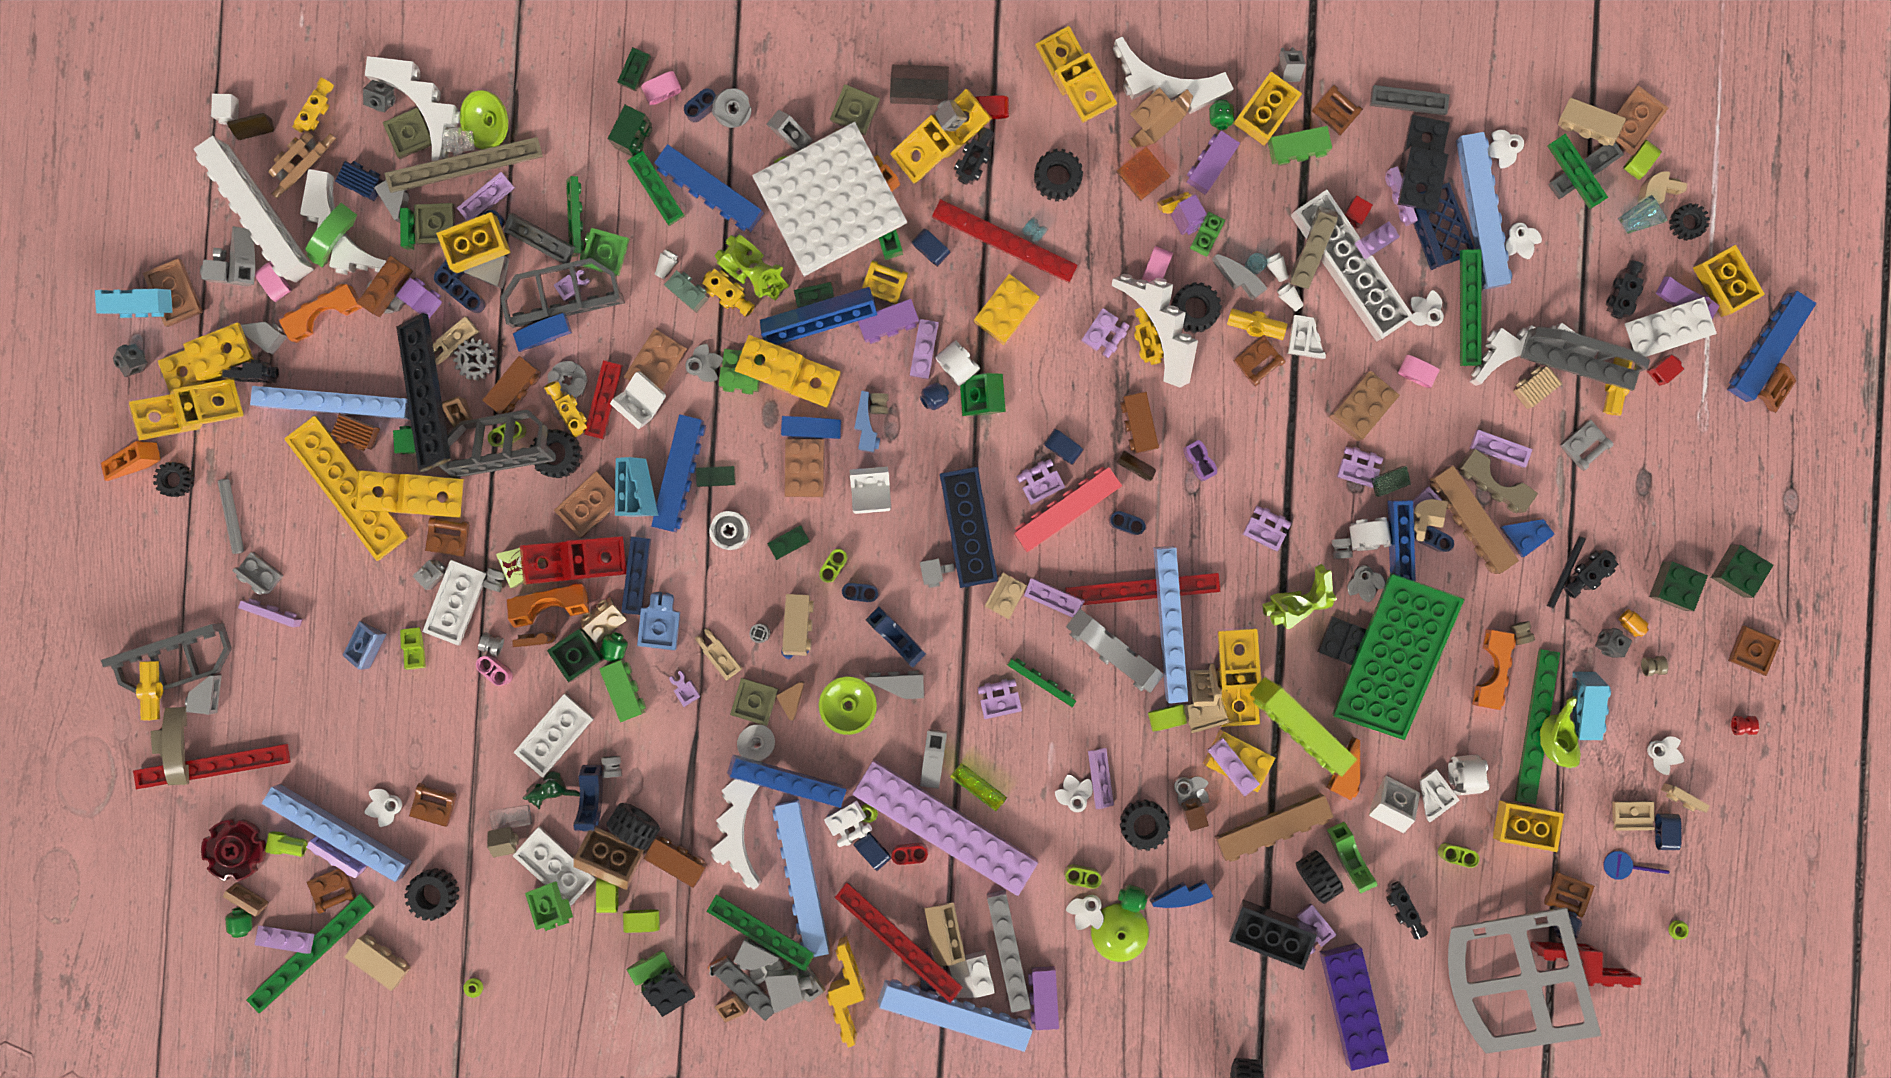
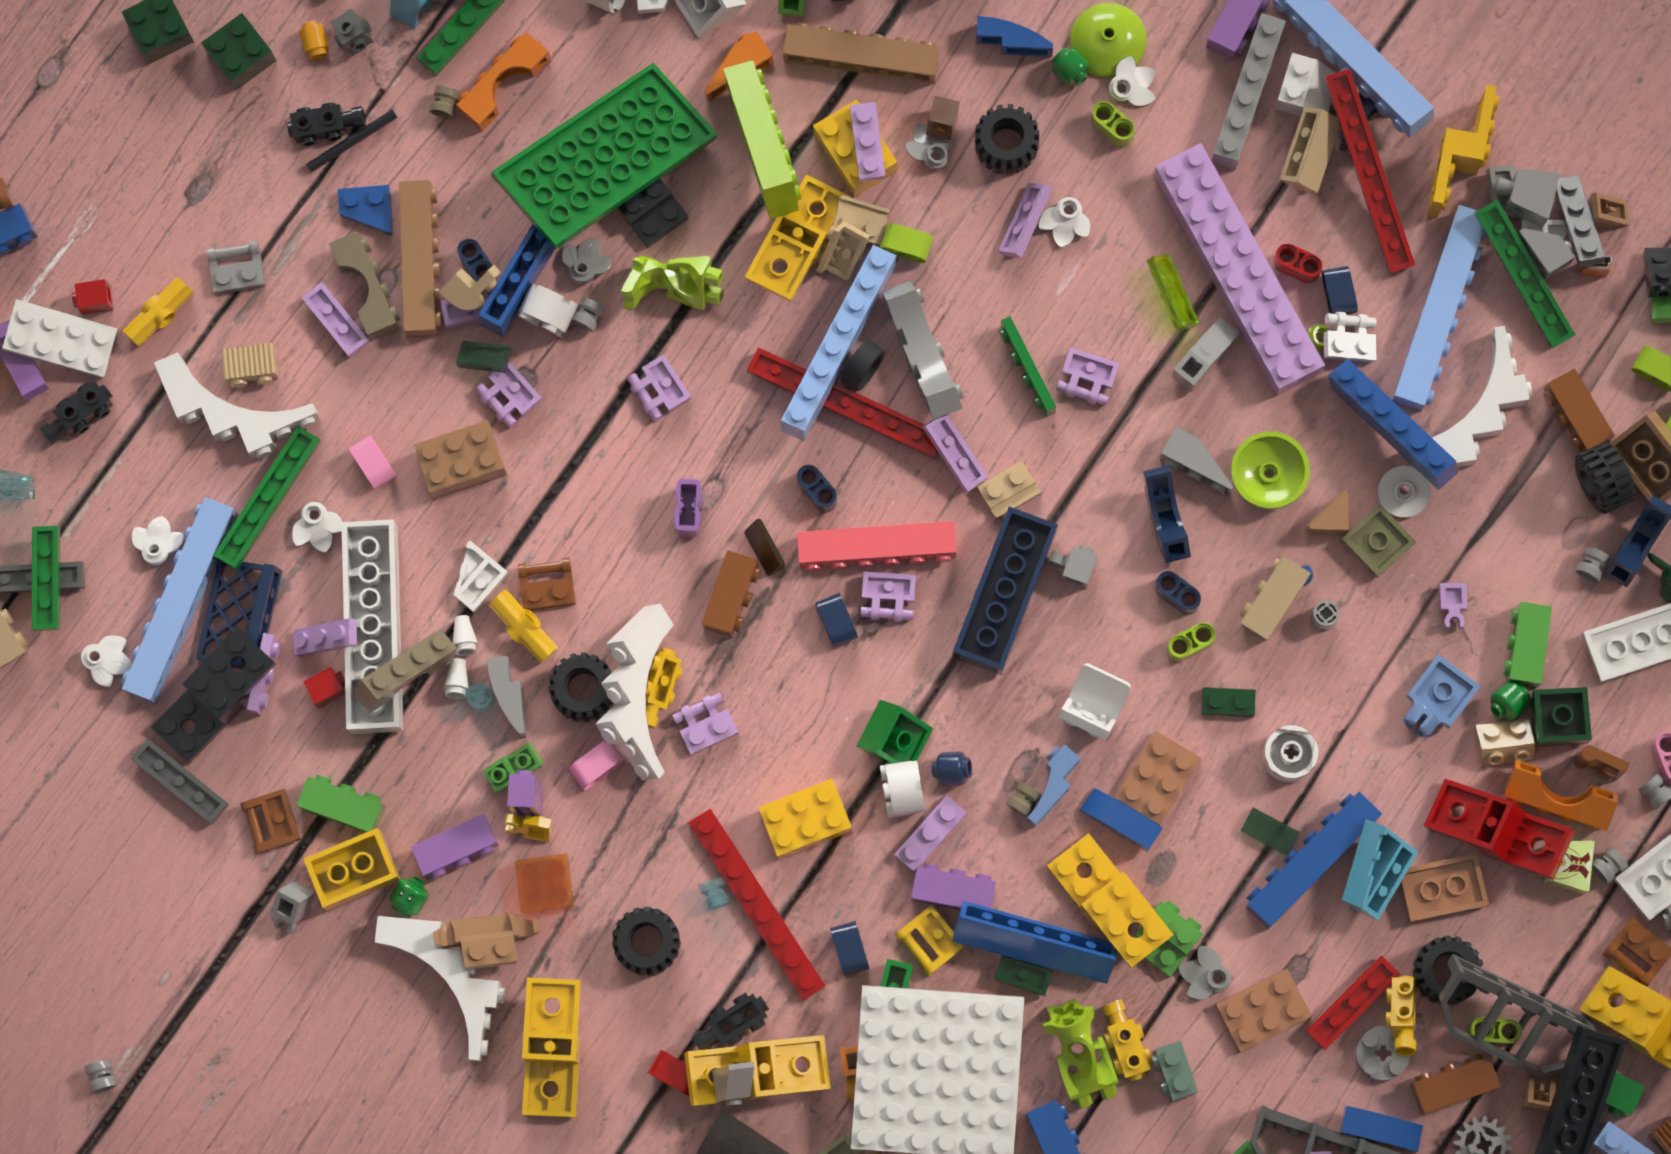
camera: 145 degrees left, 10 degrees down
(636, 575) = (1434, 770): dark blue plate -> none
(639, 400) = (1309, 973): white bracket -> none
(665, 263) = (1179, 1123): white cone -> none
(719, 655) = (1389, 618): tan hinge -> none
(1146, 619) = (862, 365): none -> black tyre
(1580, 364) = (183, 360): dark grey plate -> none

